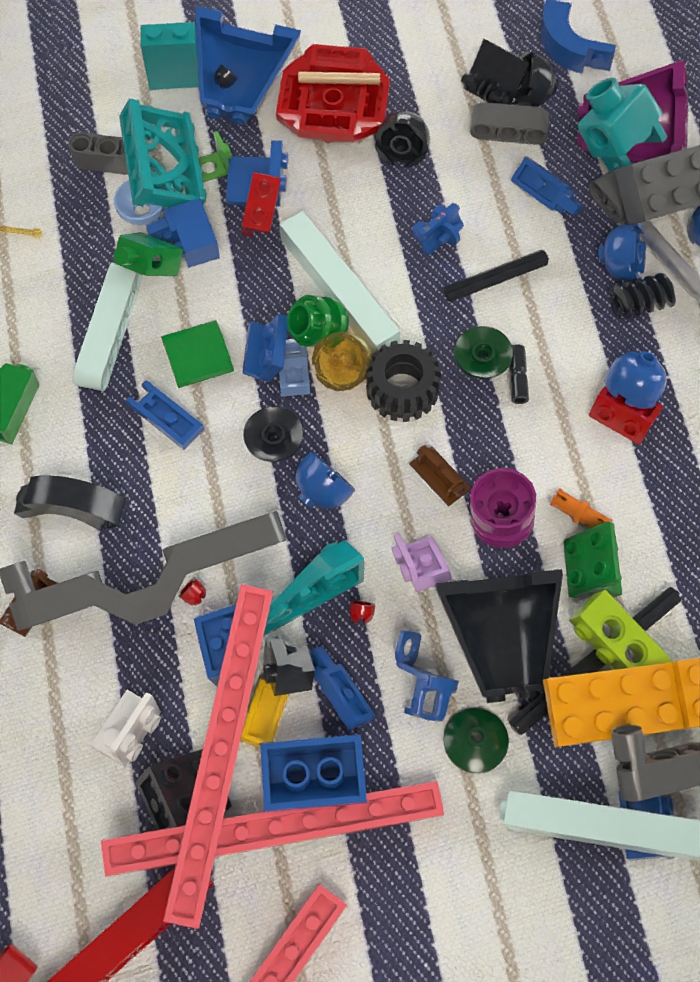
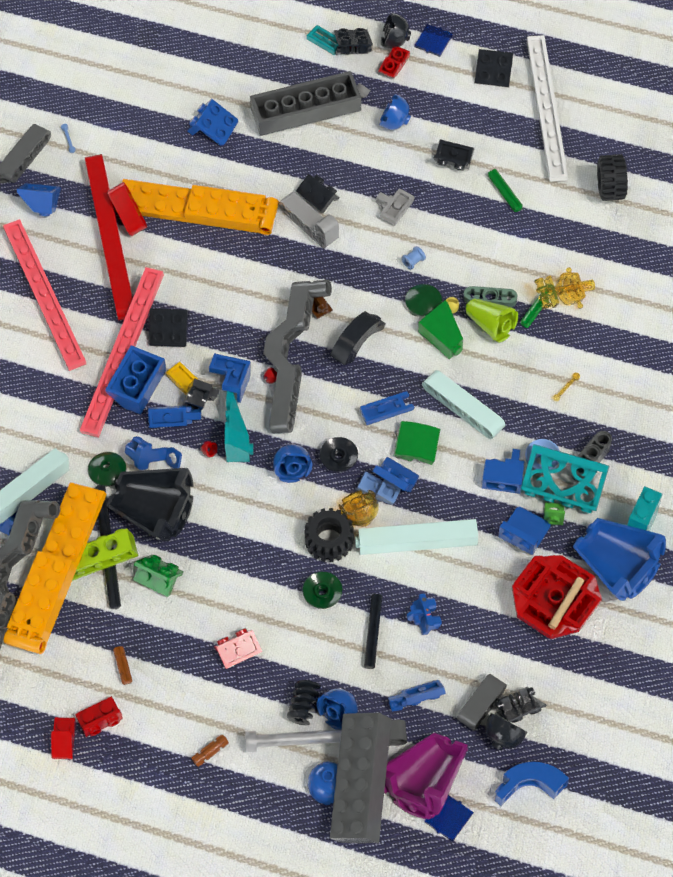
camera: 120 degrees right, 5 degrees down
(126, 728) = (217, 314): white bracket -> none
(137, 252) = (494, 436): green torso -> none
(218, 759) = (171, 337): coral plate -> none
(224, 77) = (617, 544): black hinge -> none
(260, 204) = (496, 513): red bracket -> none
(315, 318) = (393, 505): green piece -> none
(403, 139) = (505, 627): black cylinder -> none
(421, 562) = (213, 483): lavender bracket -> none
(439, 475) = (261, 528): reddish brown hinge -> none
(507, 493) = (216, 530): magenta wheel -> none
(518, 376) = (296, 603): black piece -> none
(578, 510) = (192, 587): orange pin -> none
(619, 121) = (428, 747): teal piece -> none
(637, 378) = (248, 658): blue cylinder -> none

